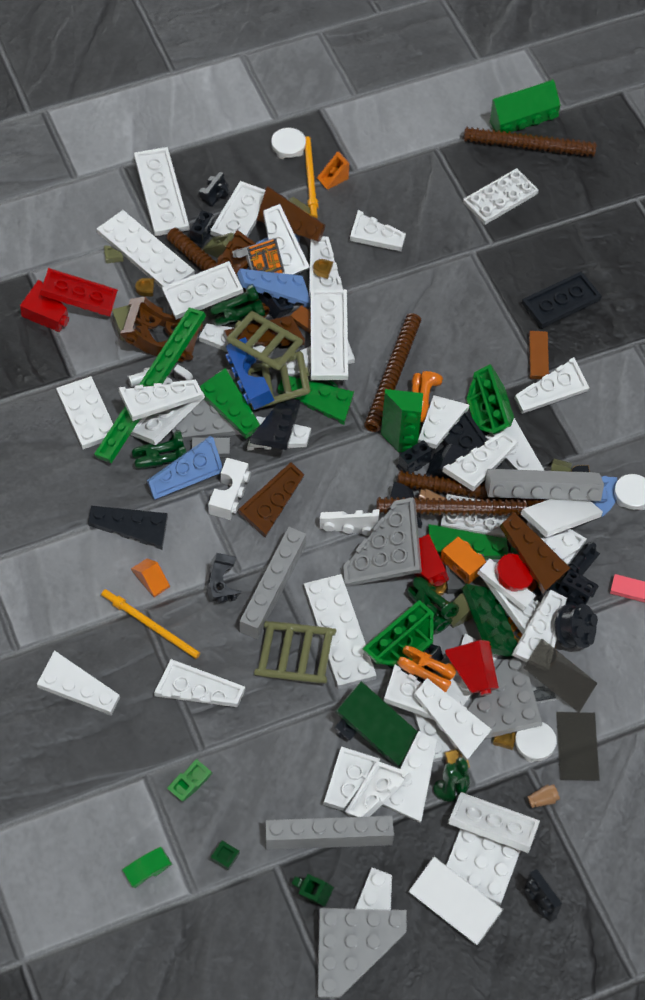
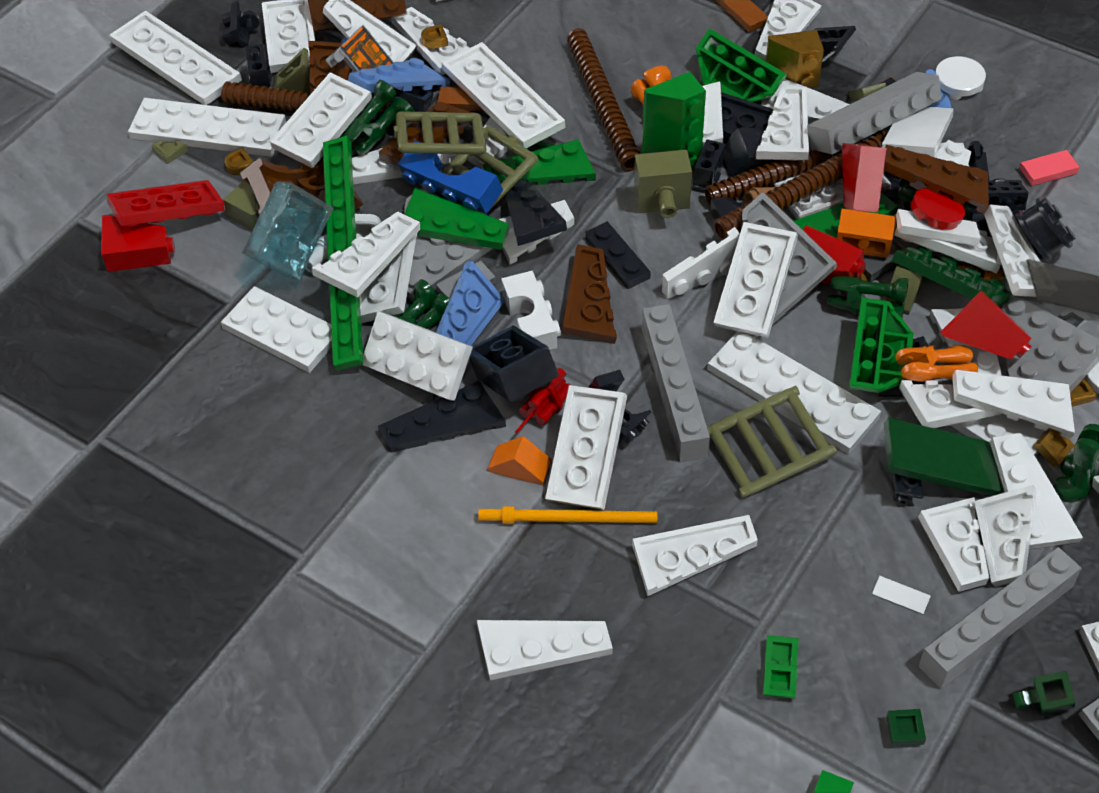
camera: 30 degrees left, 5 degrees down
(127, 354) = (287, 230): none -> clear light blue brick
(139, 476) = (416, 355): none -> white plate
(185, 515) = (513, 363): none -> black brick
(185, 590) = (586, 447): none -> white plate
(194, 548) = (545, 401): none -> red piece
(292, 785) = (901, 594): none -> white sticker
(313, 483) = (618, 255): none -> black plate
(367, 549) = (755, 279): none -> white plate
(372, 453) = (663, 182): none -> olive brick
(489, 523) = (862, 176): none -> slope
(532, 417) = (797, 56): none -> pearl gold slope
(567, 416) = (834, 39): none -> black slope

